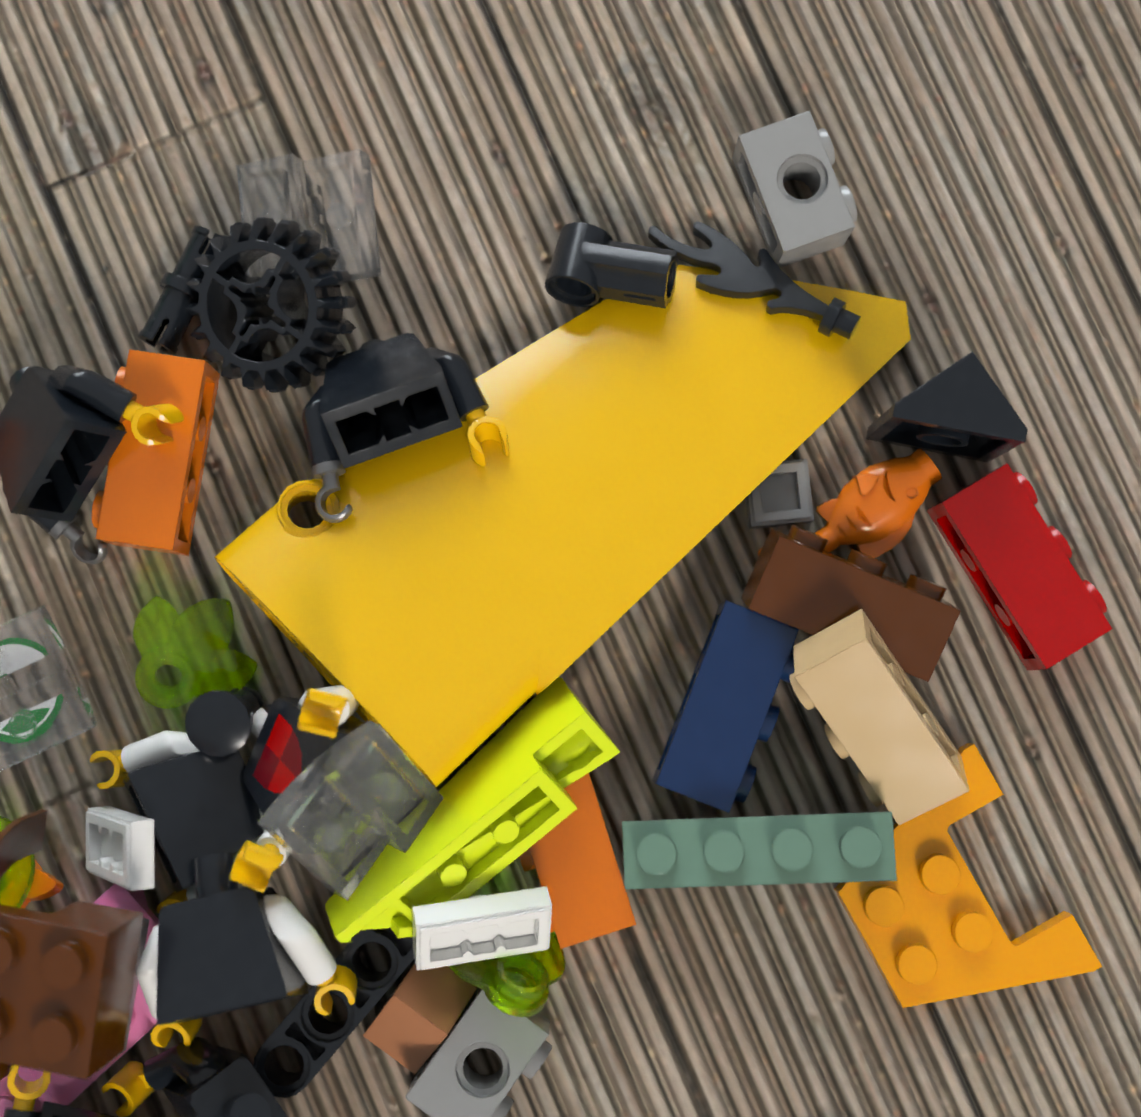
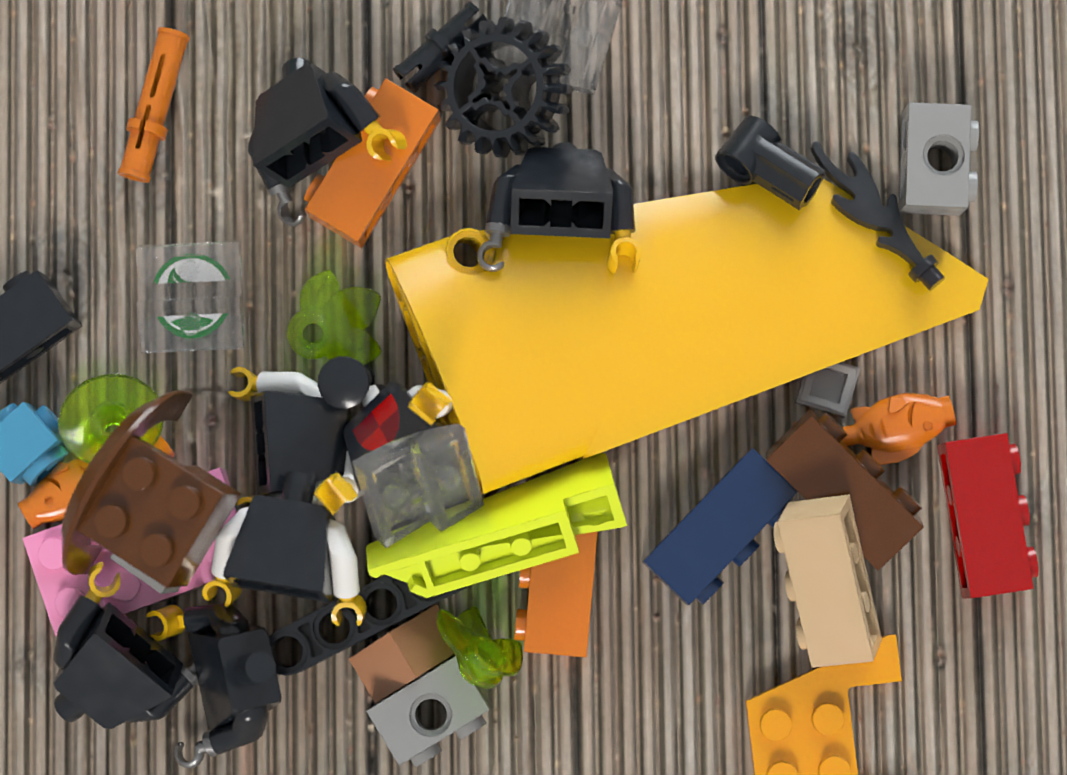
camera: 30 degrees right, 0 degrees up
(120, 847) = (232, 443): white plate -> none
(481, 928) = (474, 609): white plate -> none
(759, 850) = (698, 641): sand green brick -> none
(954, 416) = (980, 379): black slope -> none

